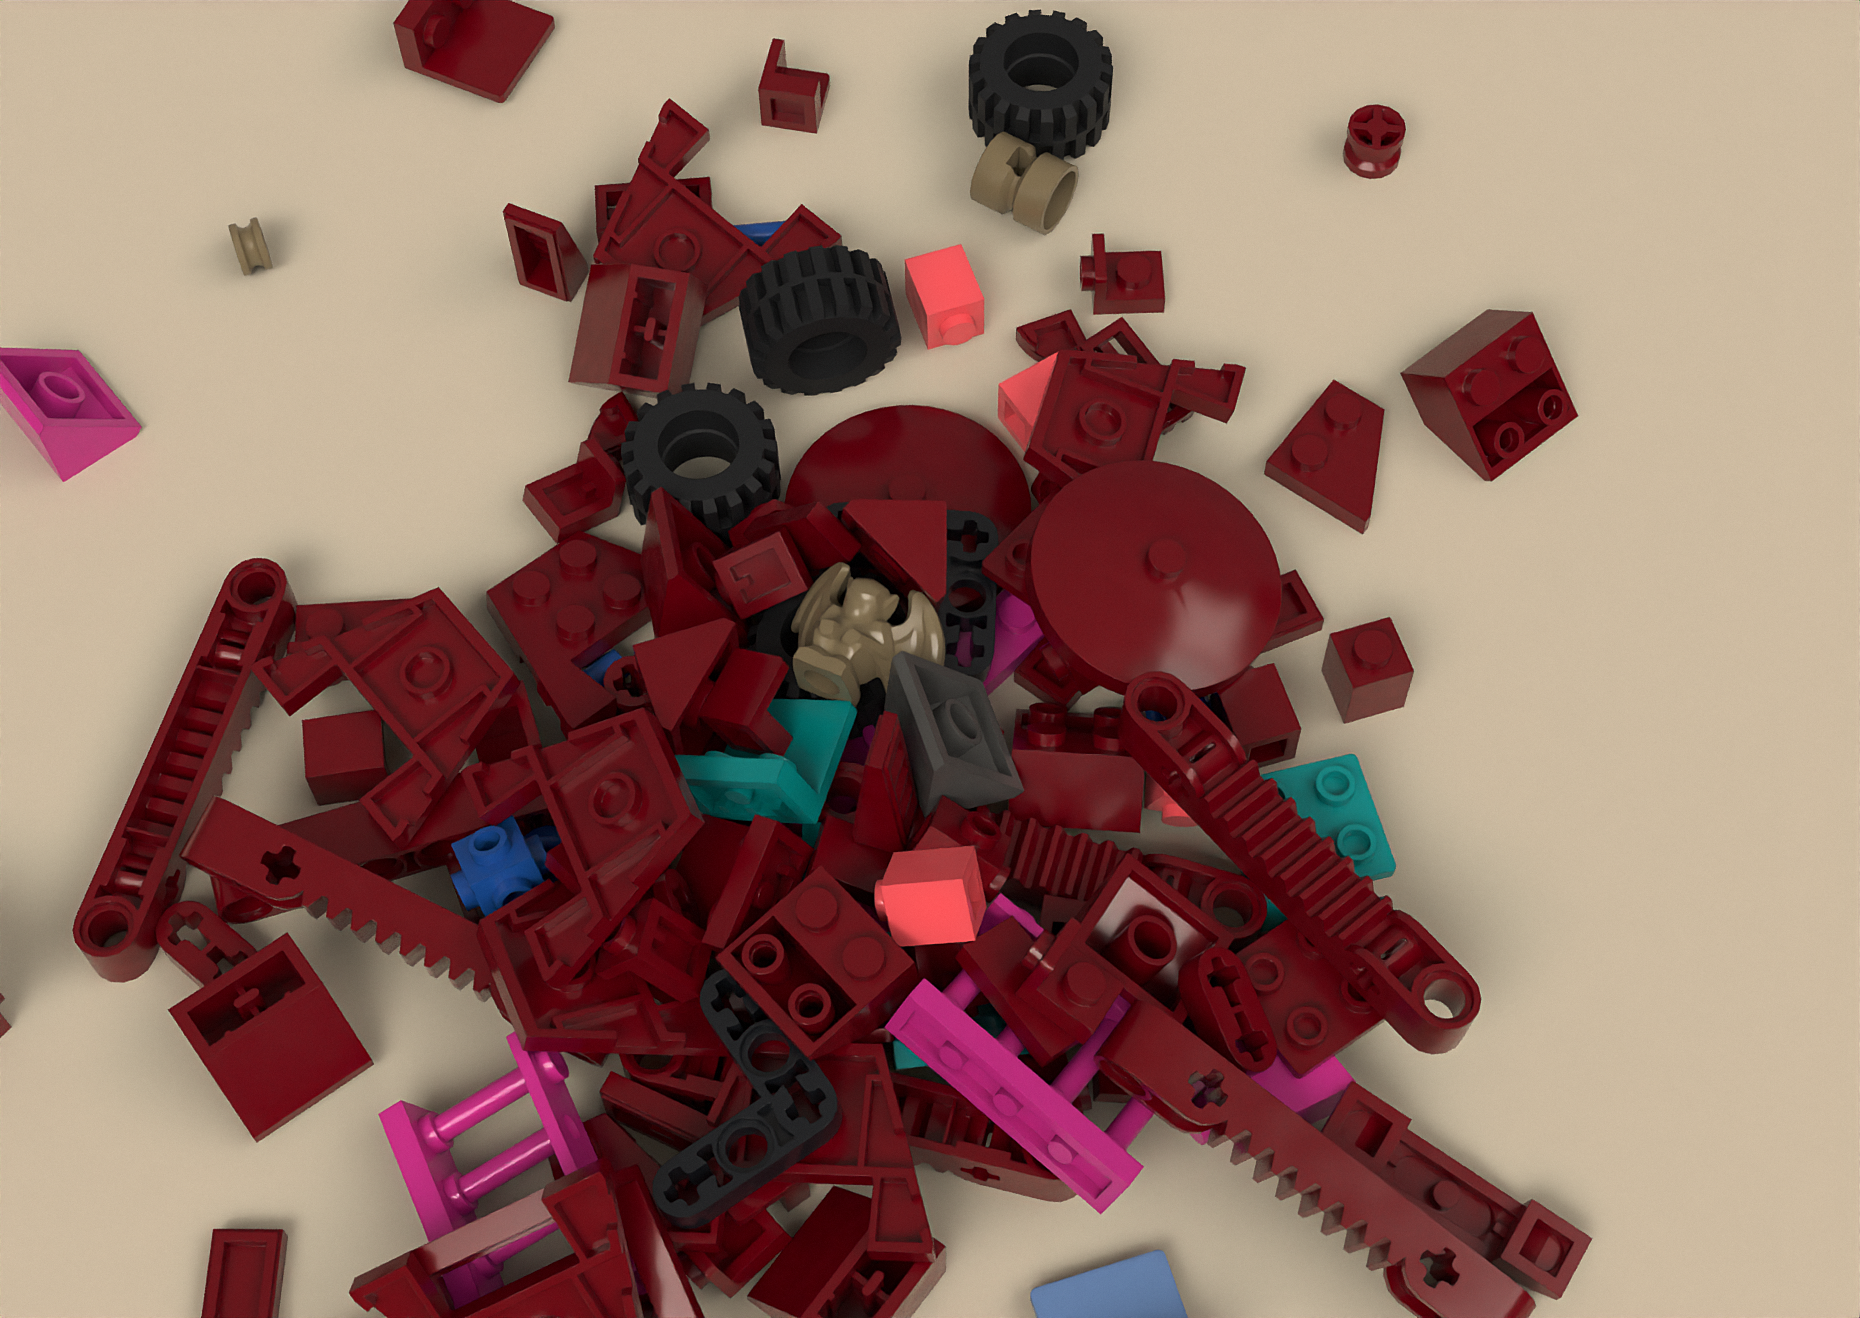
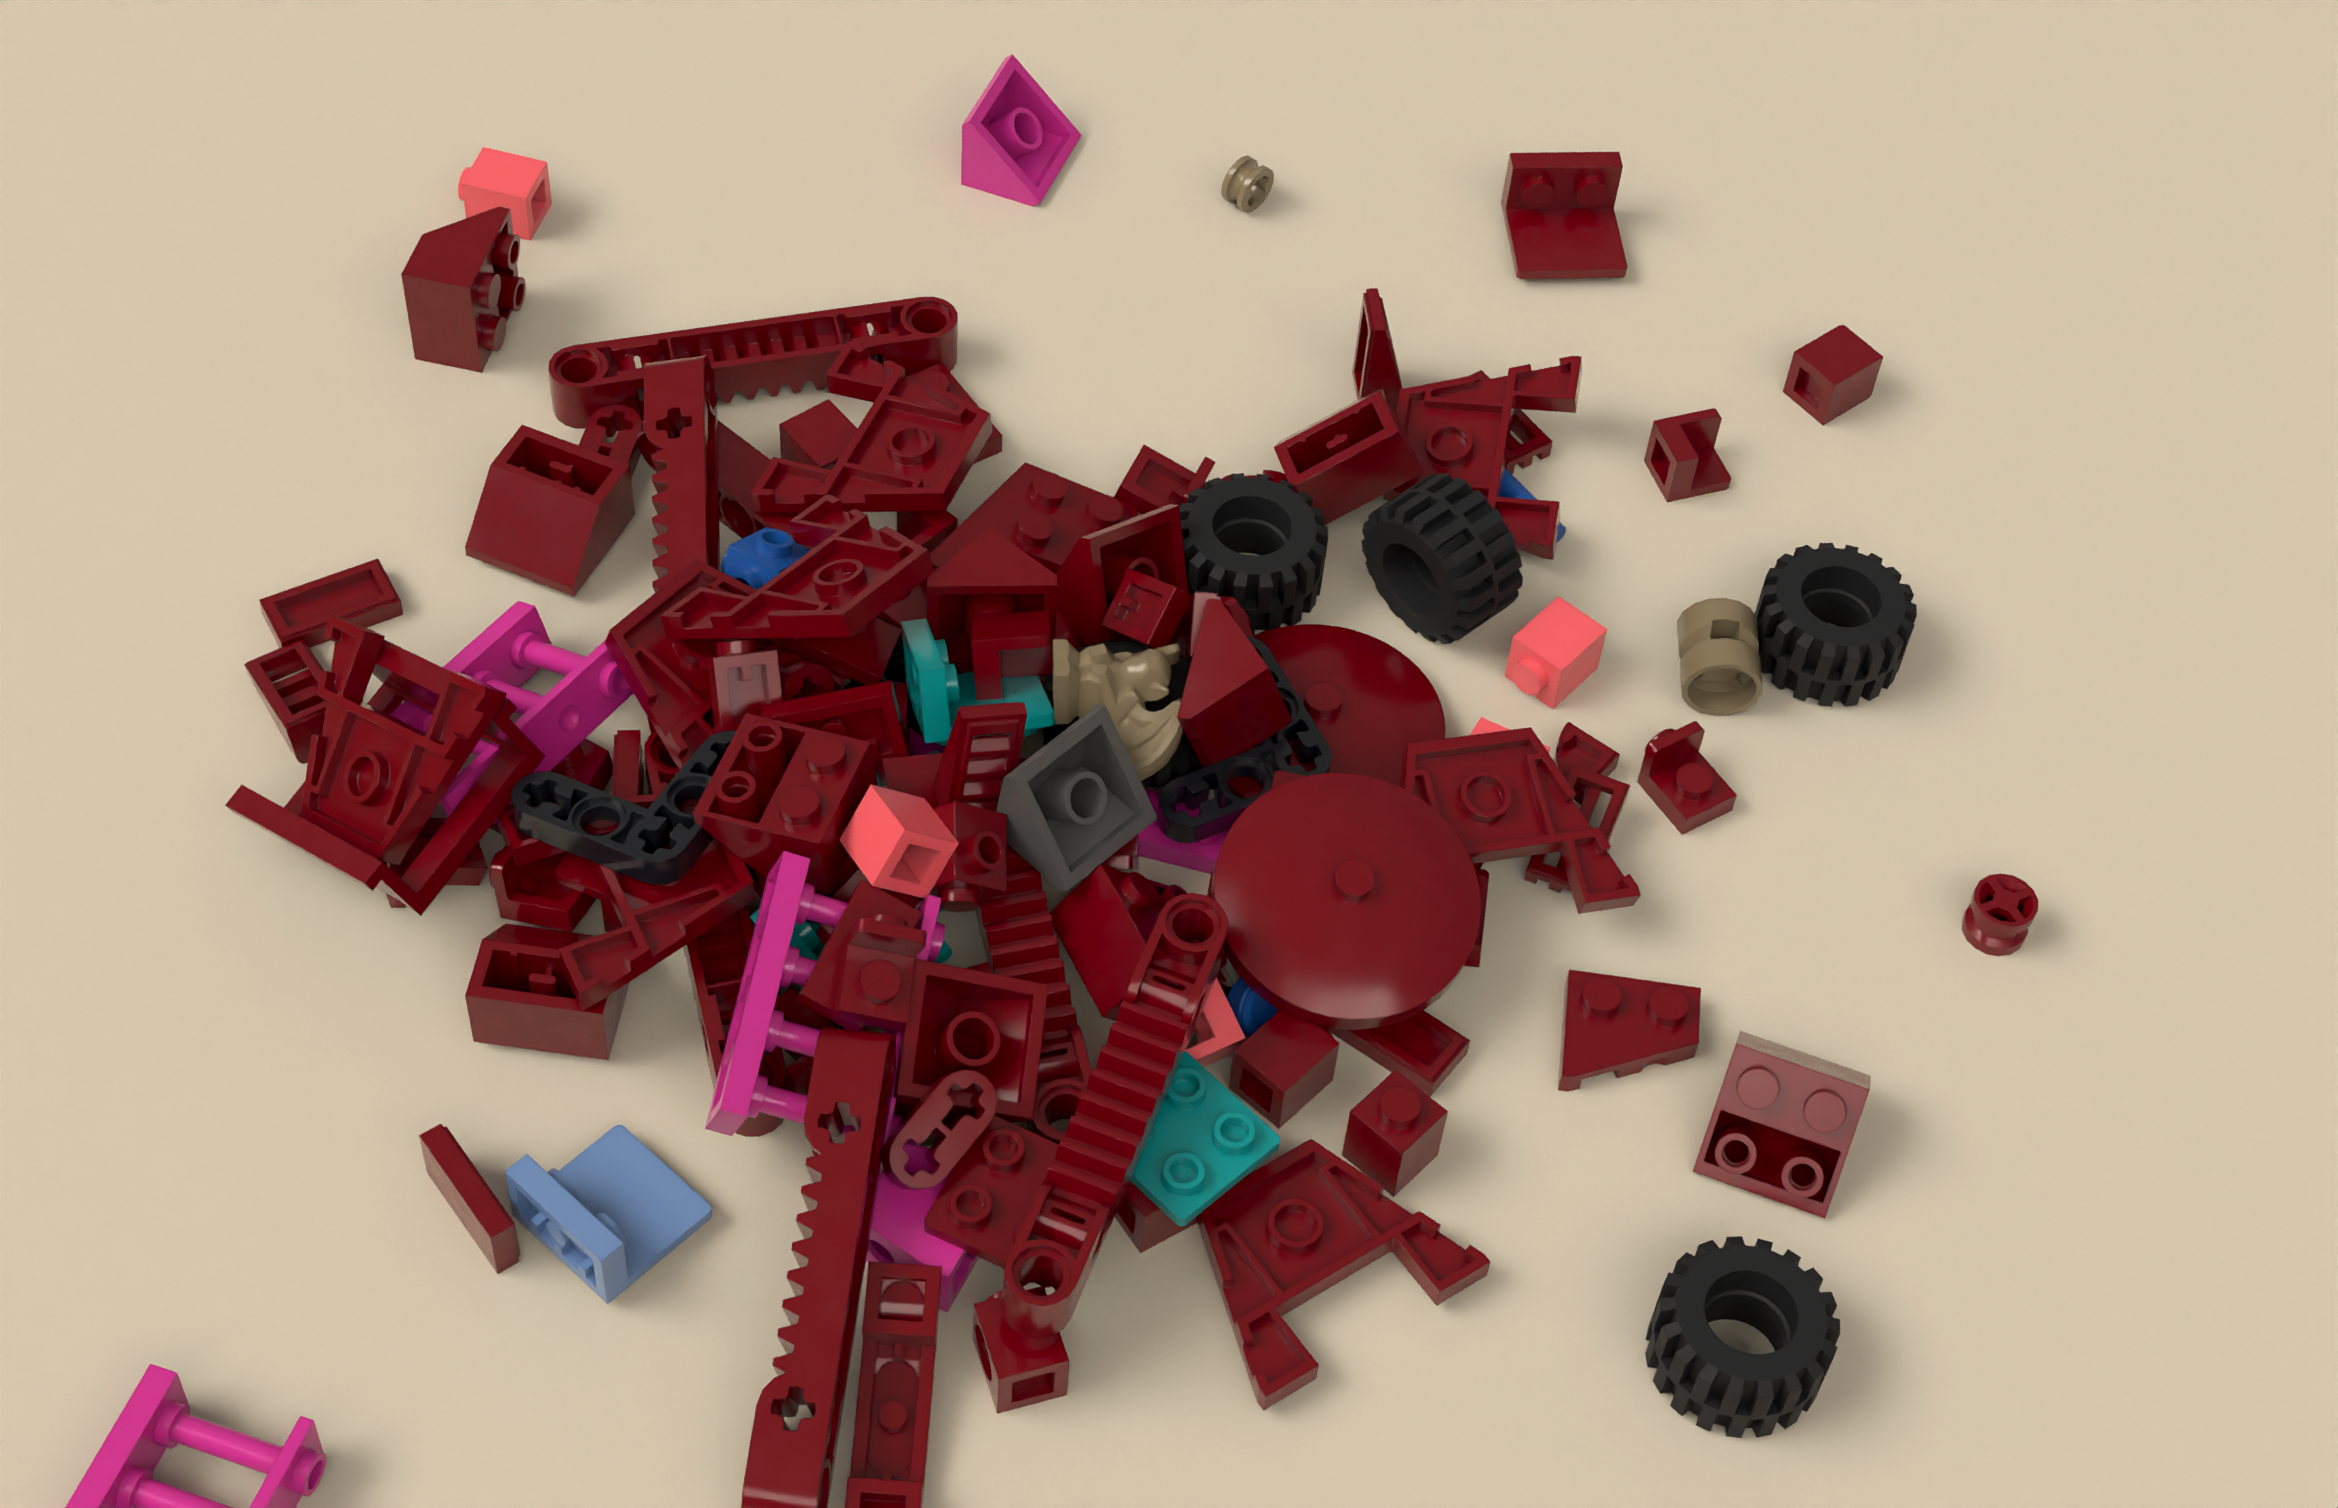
camera: 55 degrees right, 10 degrees down
(1429, 1079) = (1016, 1366): none -> dark red brick
(1430, 795) = (1300, 1232): none -> dark red wing
(1686, 486) = (1758, 1290): none -> black tyre

